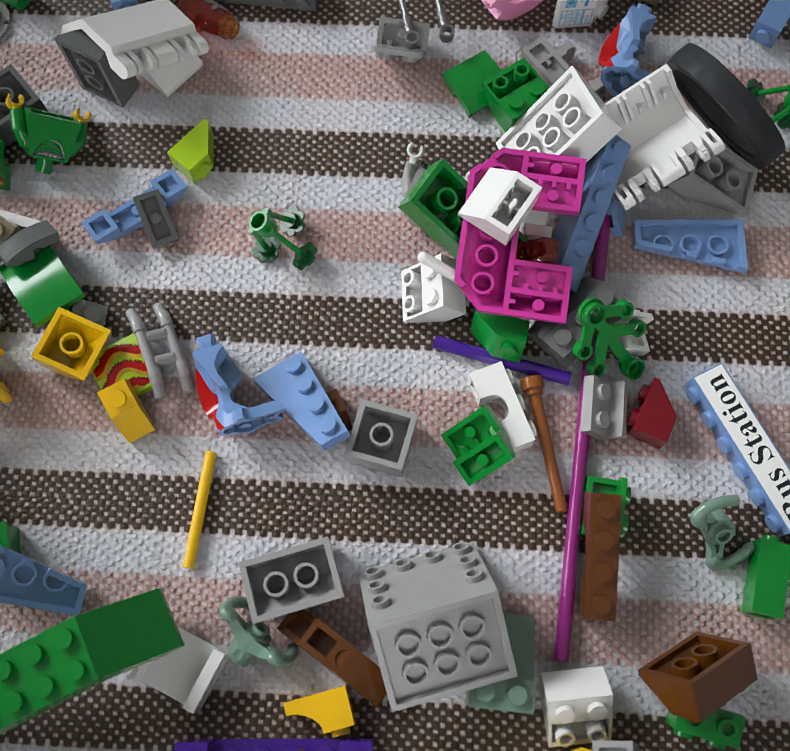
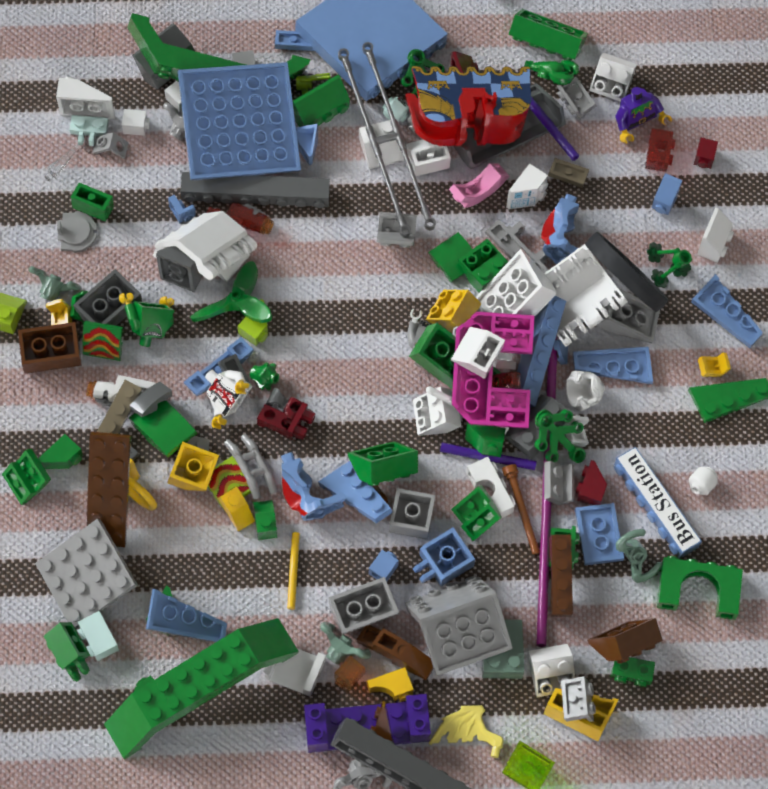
camera: 10 degrees left, 5 degrees down
(139, 244) = (226, 394): none -> torso
(167, 429) = (265, 520): none -> green slope
(178, 116) = (239, 299): none -> green piece
(197, 222) = (264, 375): none -> green rock
(224, 287) = (286, 422): none -> dark red hips
(259, 684) = (349, 673): none -> clear orange brick
(264, 225) = (318, 374): plant -> none
(332, 514) = (383, 565): none -> medium blue brick
(347, 359) = (384, 462): none -> green slope
(420, 528) = (441, 568): none -> medium blue hinge
(470, 146) = (453, 308): none -> yellow slope
(647, 273) = (584, 389): none -> white helmet
(659, 490) = (598, 533): none -> medium blue plate

